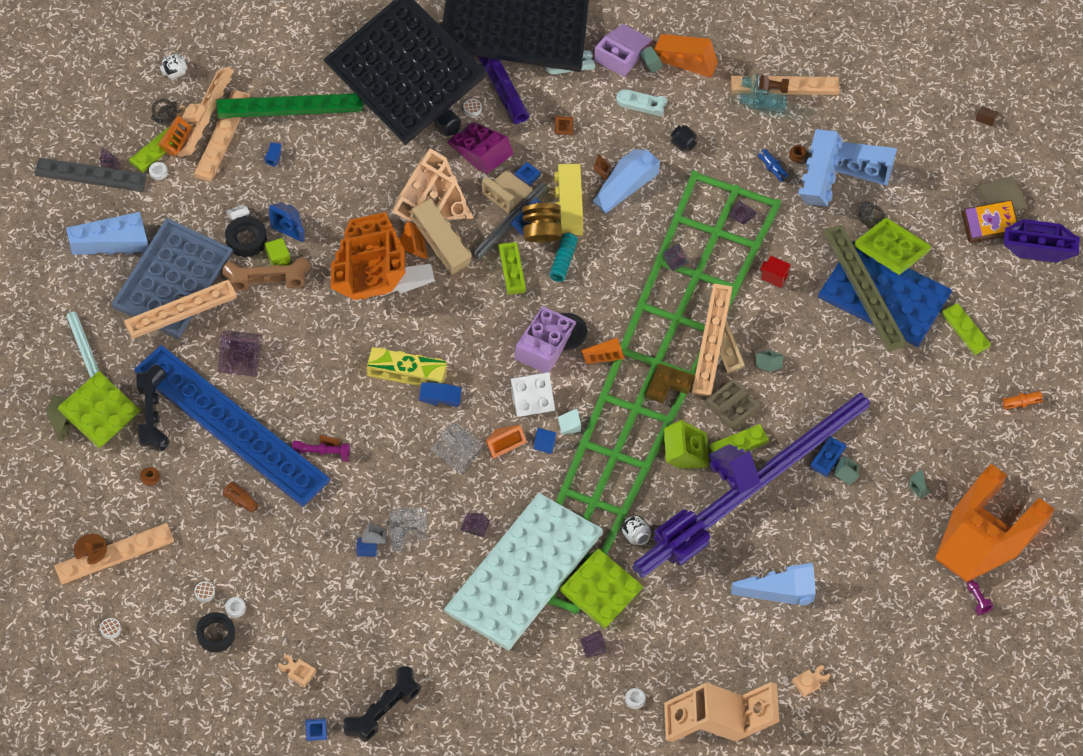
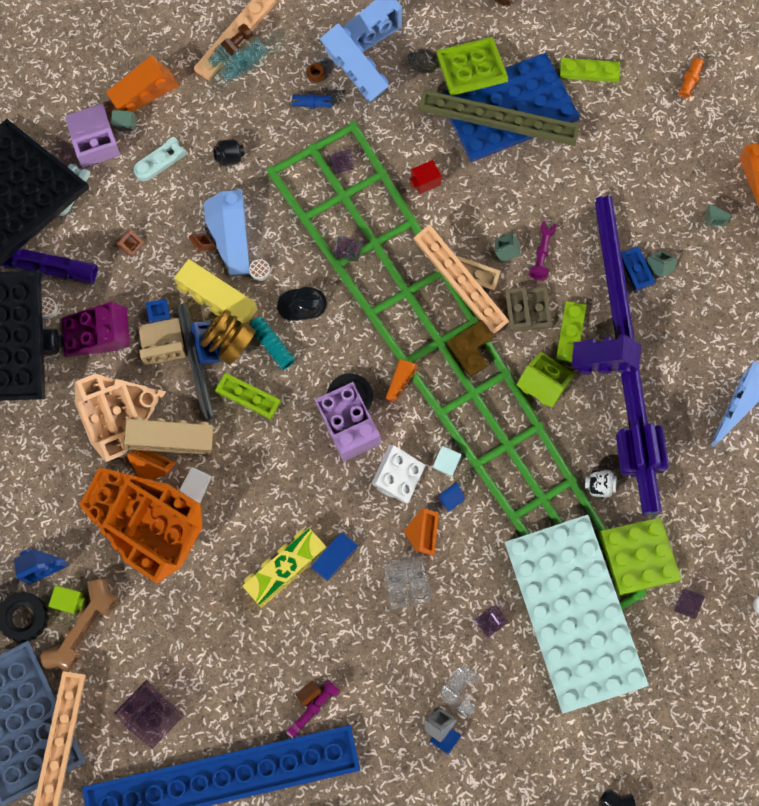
camera: 50 degrees left, 15 degrees up
(611, 259) = (302, 304): none -> black piece
(612, 216) = (259, 270): none -> tile
(786, 385) = (538, 271): none -> magenta piece

